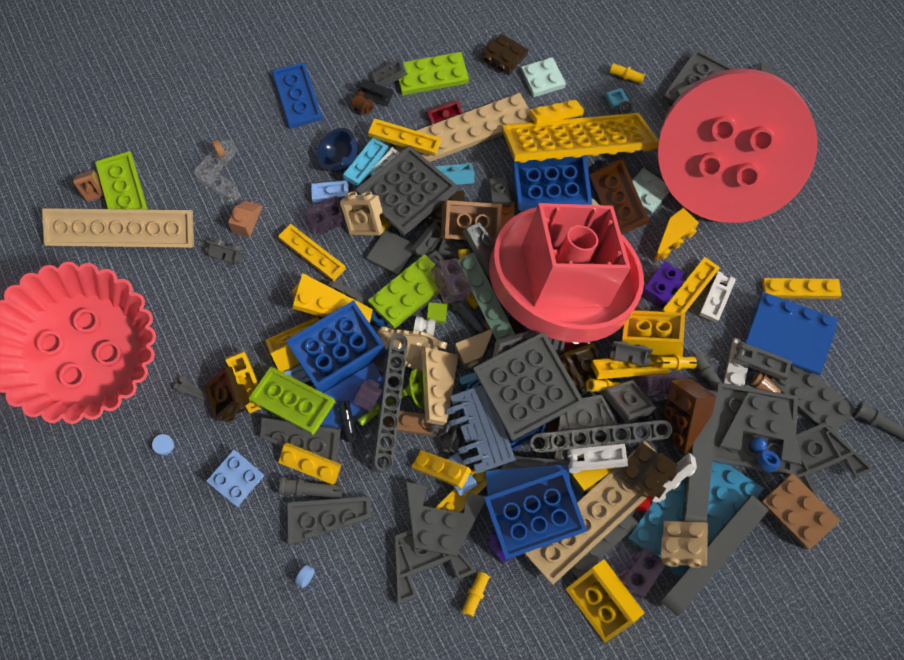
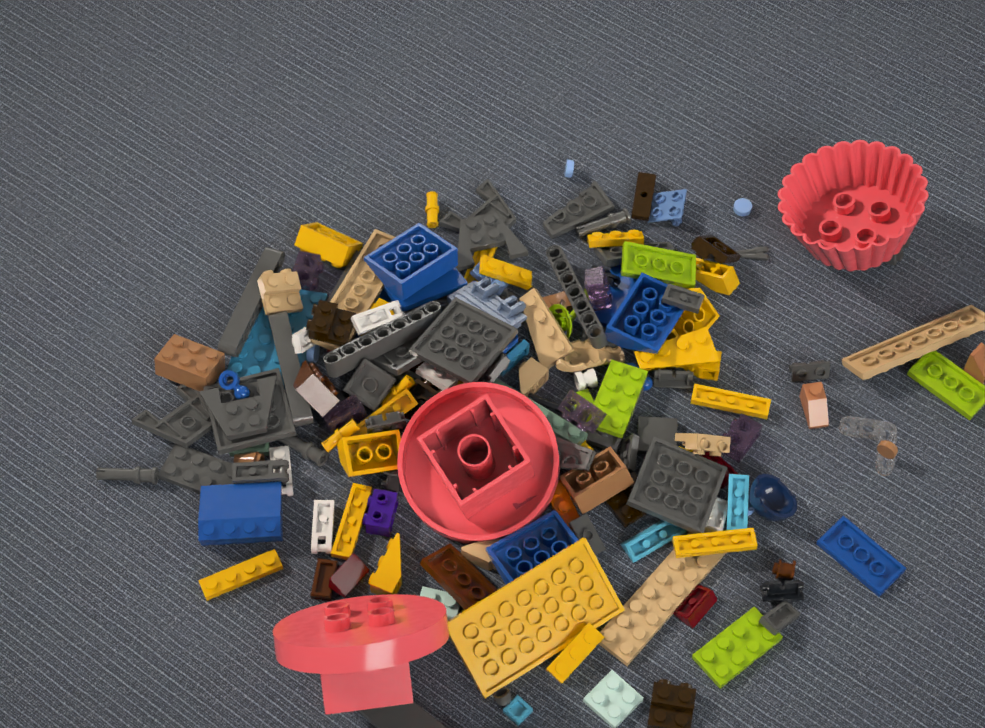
camera: 155 degrees right, 10 degrees down
(242, 513) = (643, 196): none -> dark brown tile
(298, 335) = (683, 298): none -> dark grey plate
(328, 190) = (754, 463): light blue plate -> none
(711, 243) = (348, 575): none -> slope
(730, 254) = (323, 572): none -> reddish brown tile

